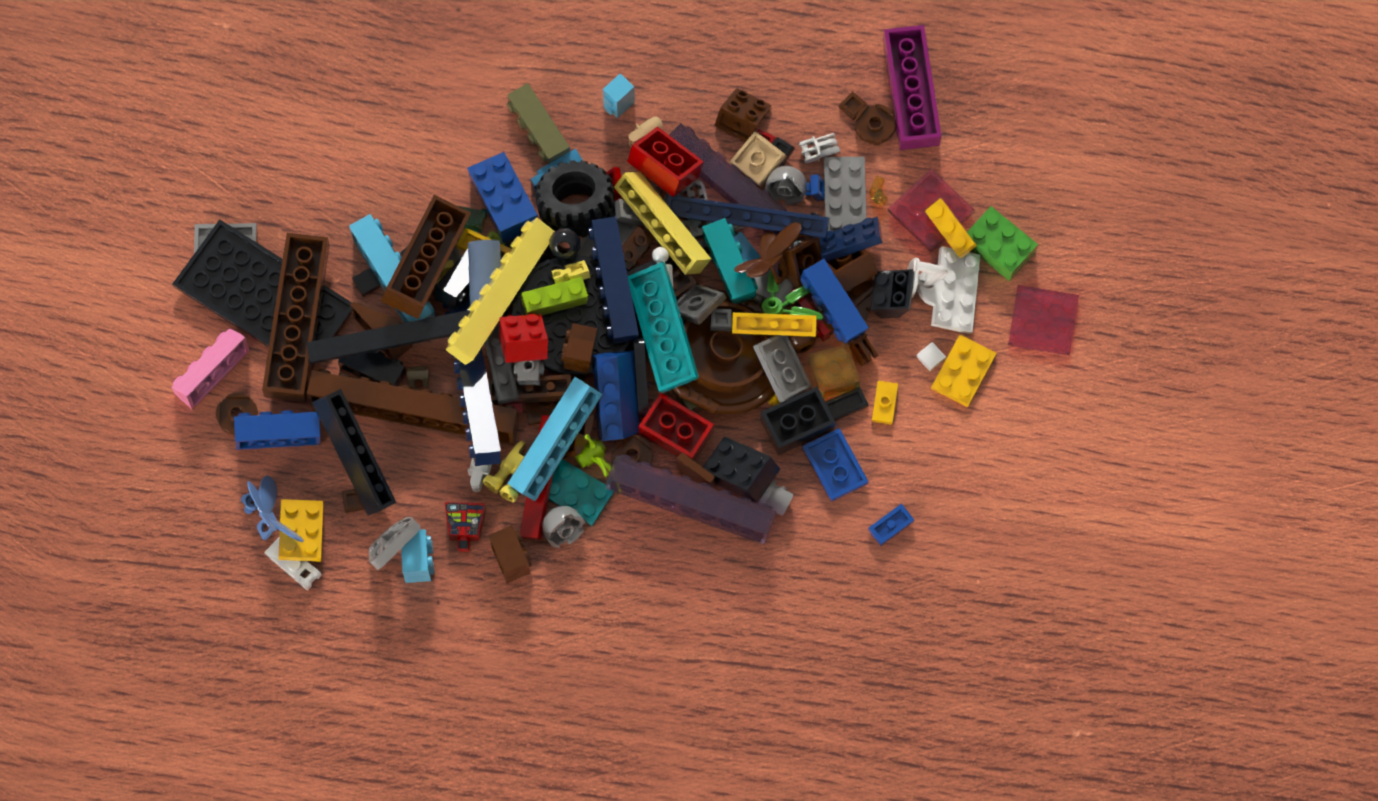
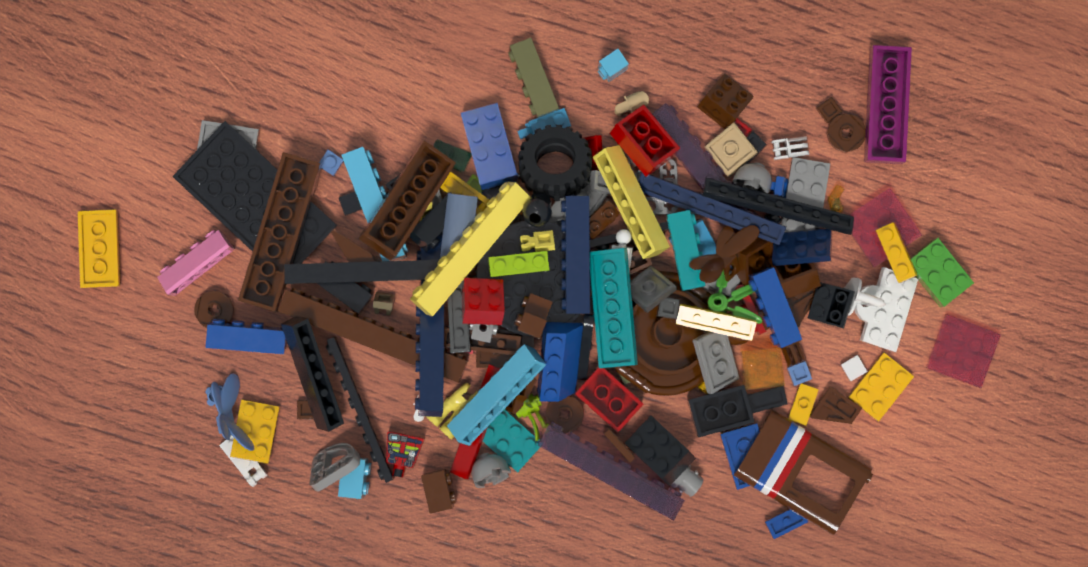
camera: 10 degrees right, 15 degrees up
(103, 373) = (98, 248): none -> yellow plate
(339, 245) = (331, 162): none -> medium blue plate
(415, 496) = (362, 417): none -> black plate
(817, 202) = (778, 206): none -> black tile
(867, 461) = (778, 458): none -> reddish brown piece
(874, 370) = (799, 373): none -> medium blue plate
(920, 399) = (835, 408): none -> reddish brown wing

